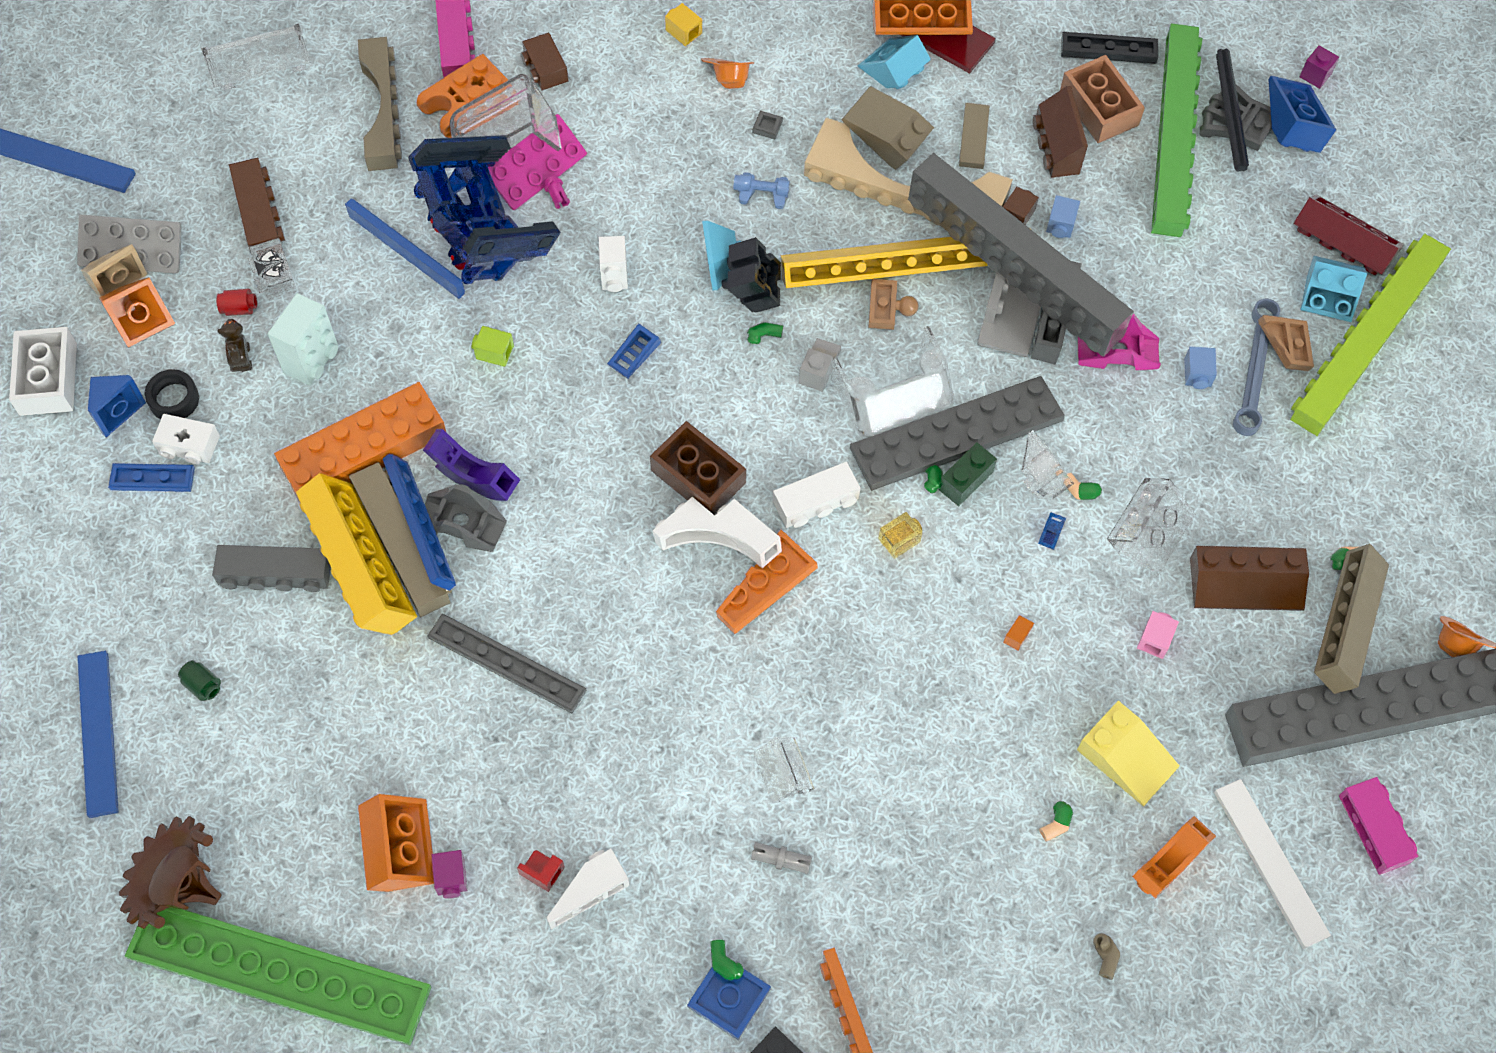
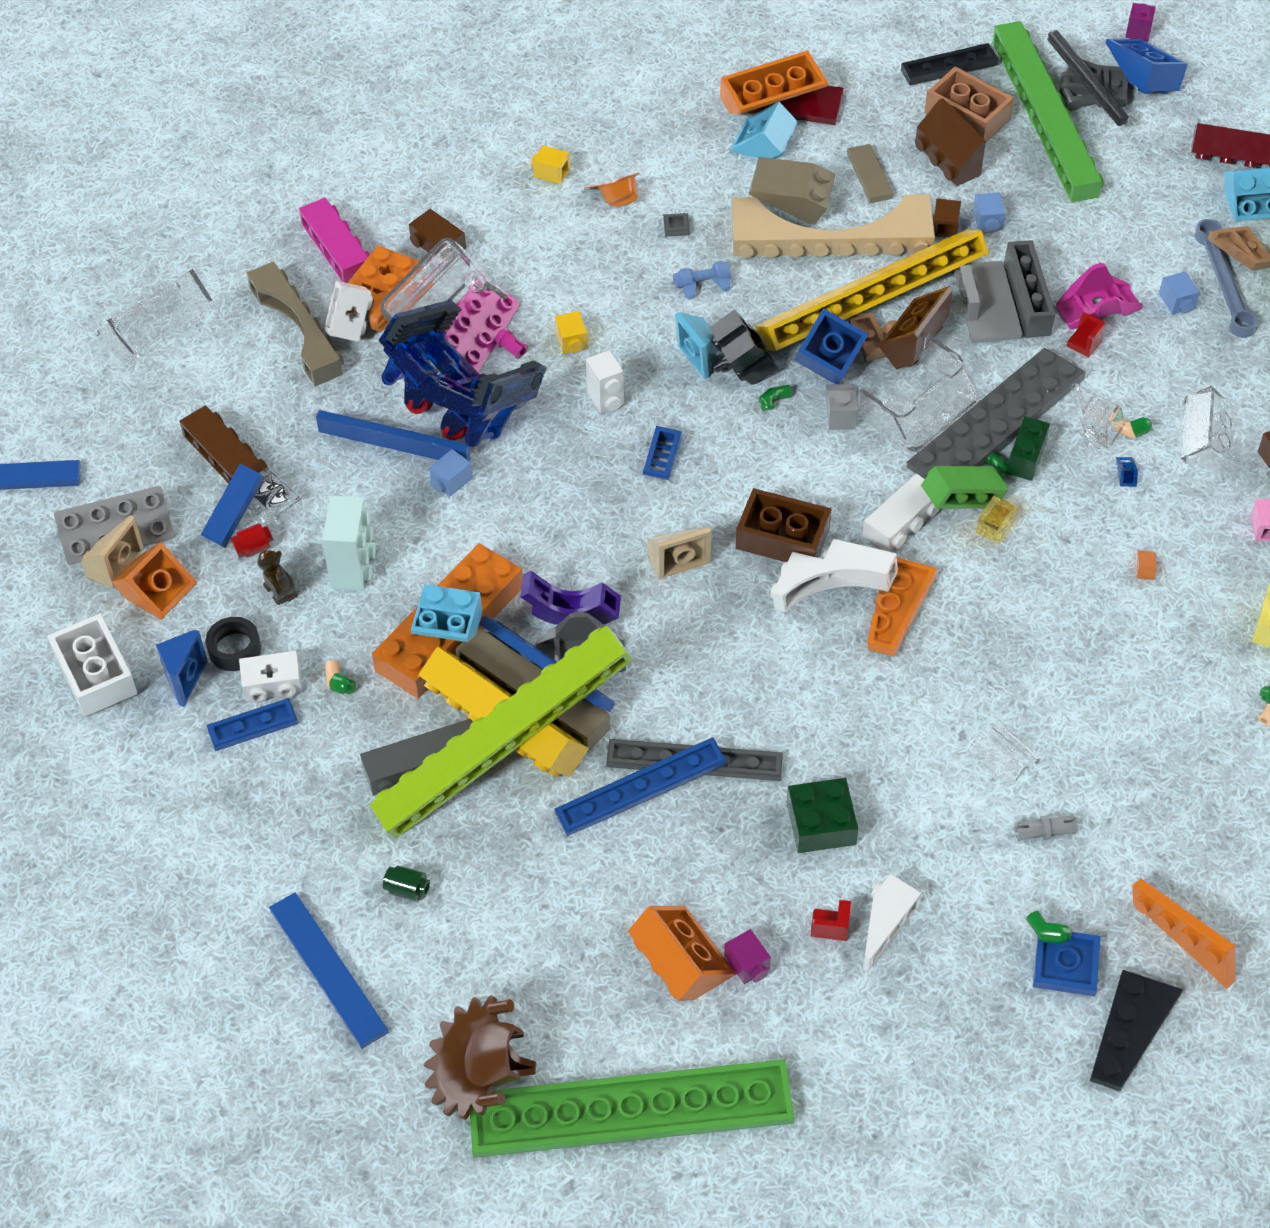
camera: 20 degrees left, 10 degrees down
(233, 263) = (232, 505): none -> blue tile
(240, 464) = (337, 681): none -> green arm
(333, 576) = (500, 731): none -> lime brick
(345, 446) = (447, 613): none -> medium azure slope
(428, 97) = (344, 298): none -> white brick
(436, 301) = (450, 473): none -> medium blue brick
(444, 670) = (640, 786): none -> blue tile
(492, 346) = (526, 492): lime brick -> none
(584, 764) = (822, 815): none -> dark green brick
(592, 455) = (679, 551): none -> tan slope
(613, 201) = (571, 332): none -> yellow brick
(834, 303) = (830, 347): none -> blue brick
(881, 492) = (963, 486): none -> bright green brick
(932, 308) = (922, 317): none -> reddish brown slope
(1019, 255) = (980, 245): dark grey brick -> none
(1088, 379) = (1088, 335): none -> red panel

